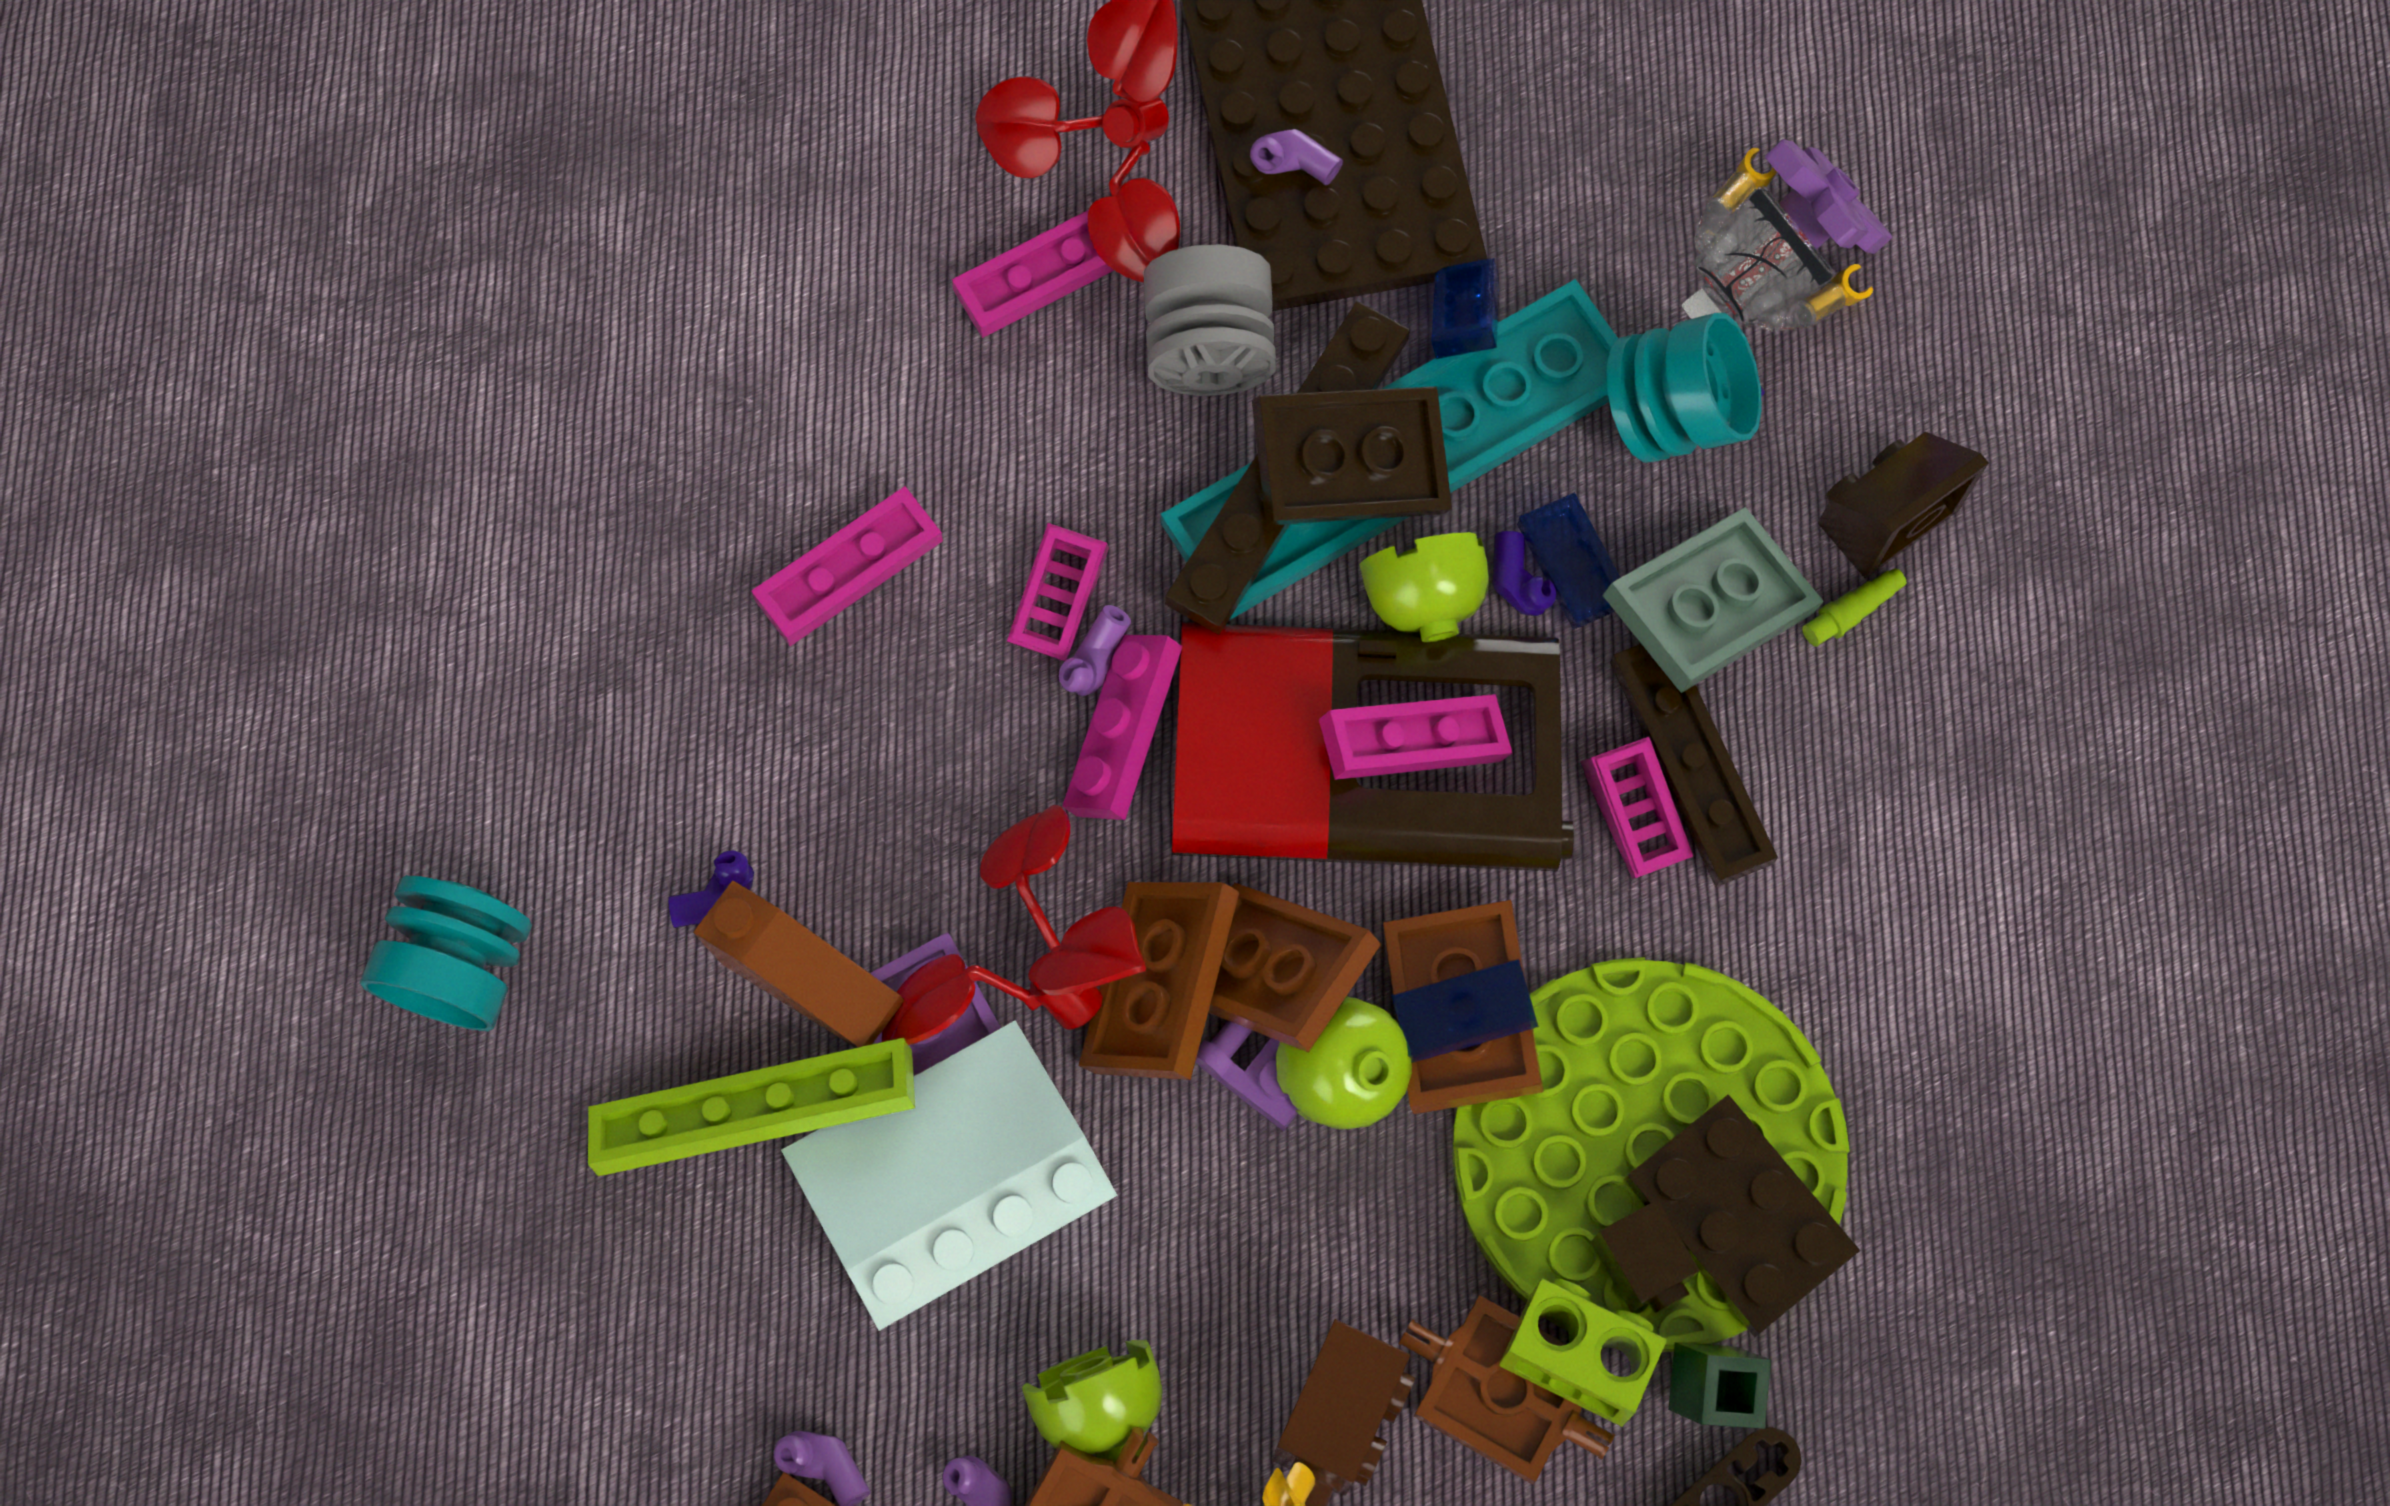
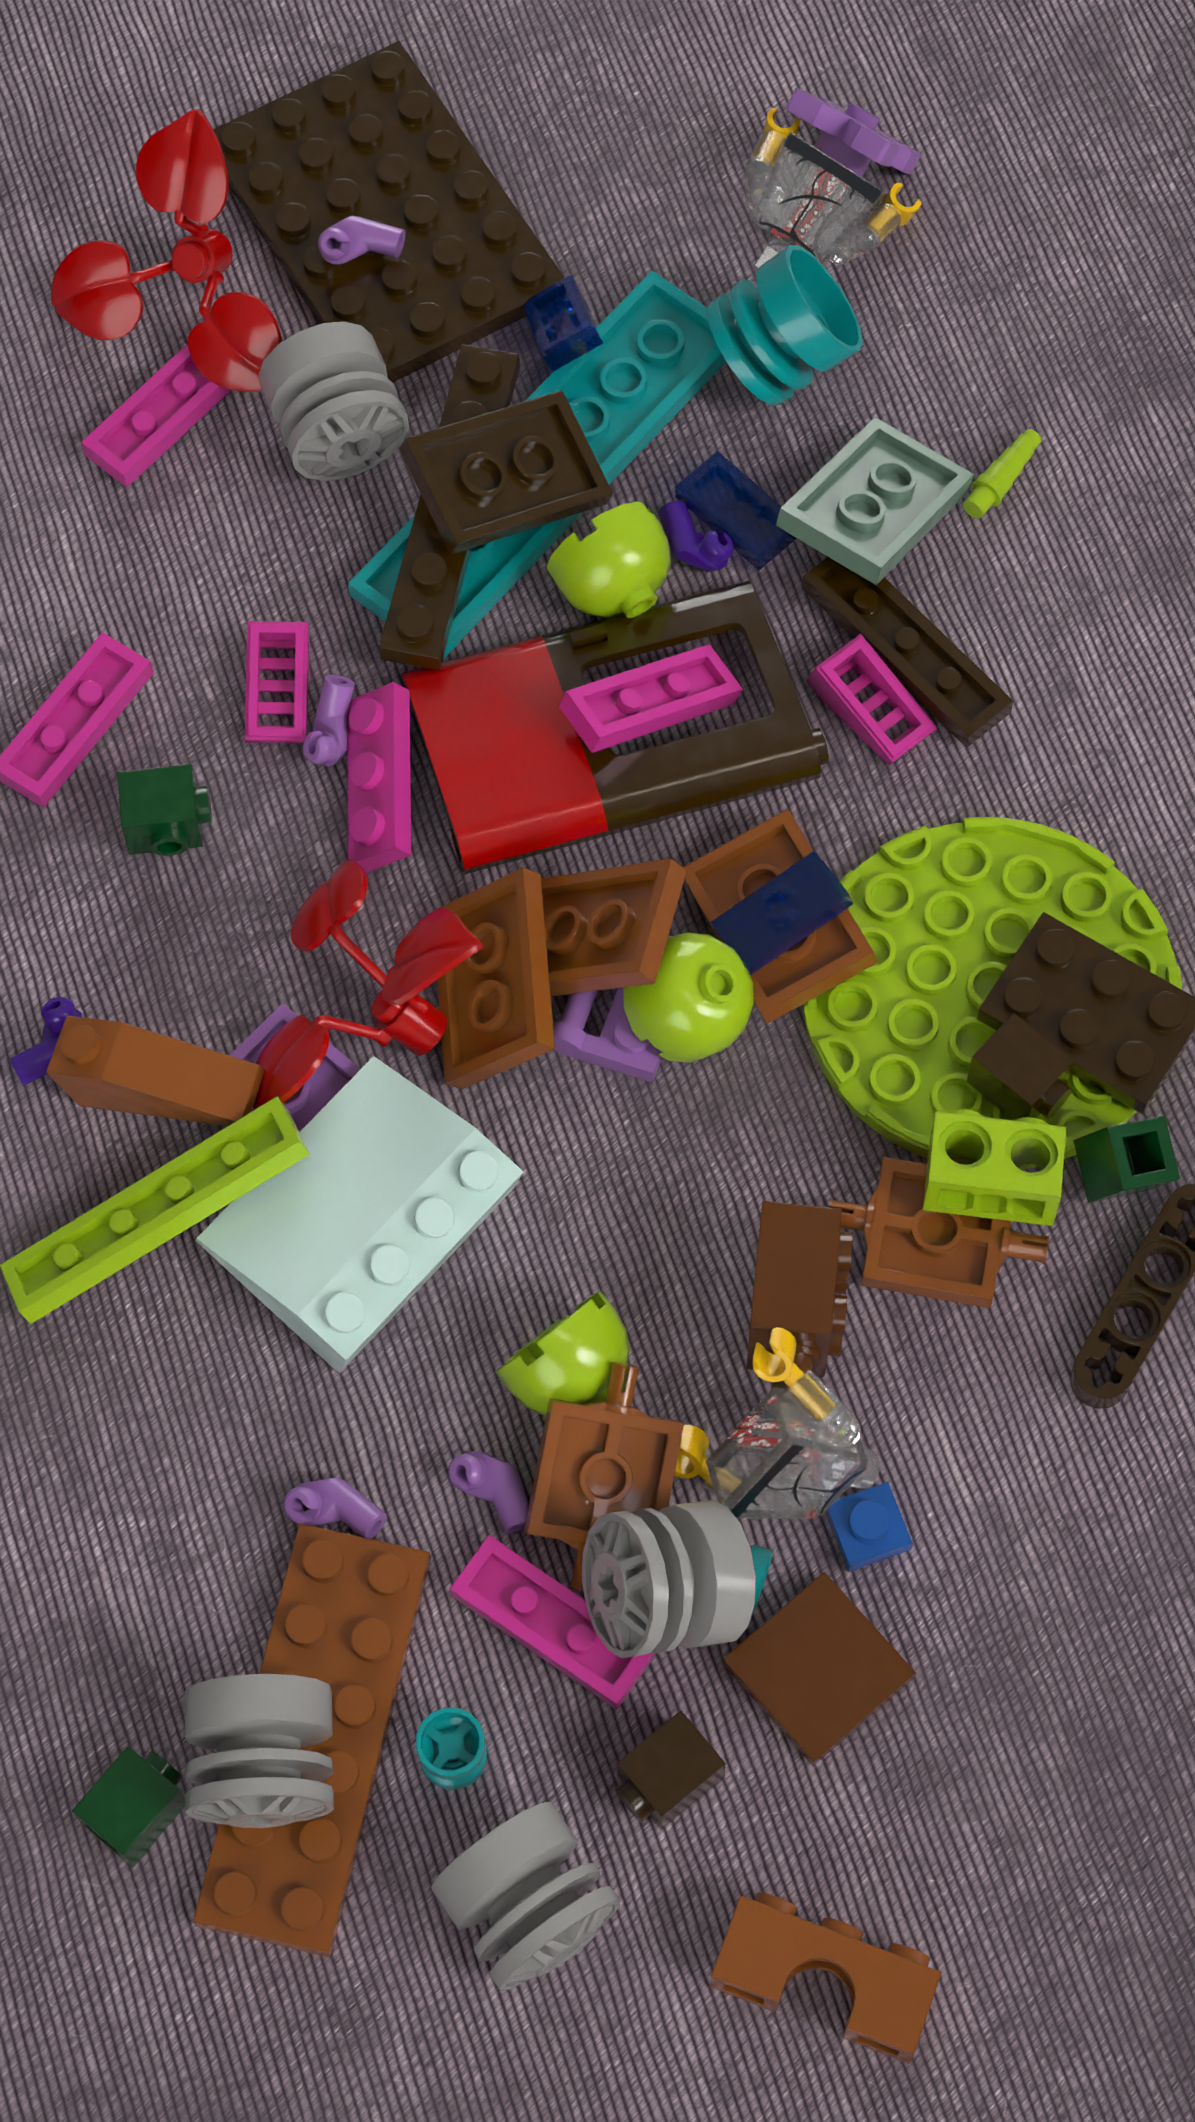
camera: 15 degrees left, 5 degrees down
(901, 691) = (162, 809): none -> dark green brick
(1899, 499) = (1010, 366): dark brown slope -> none

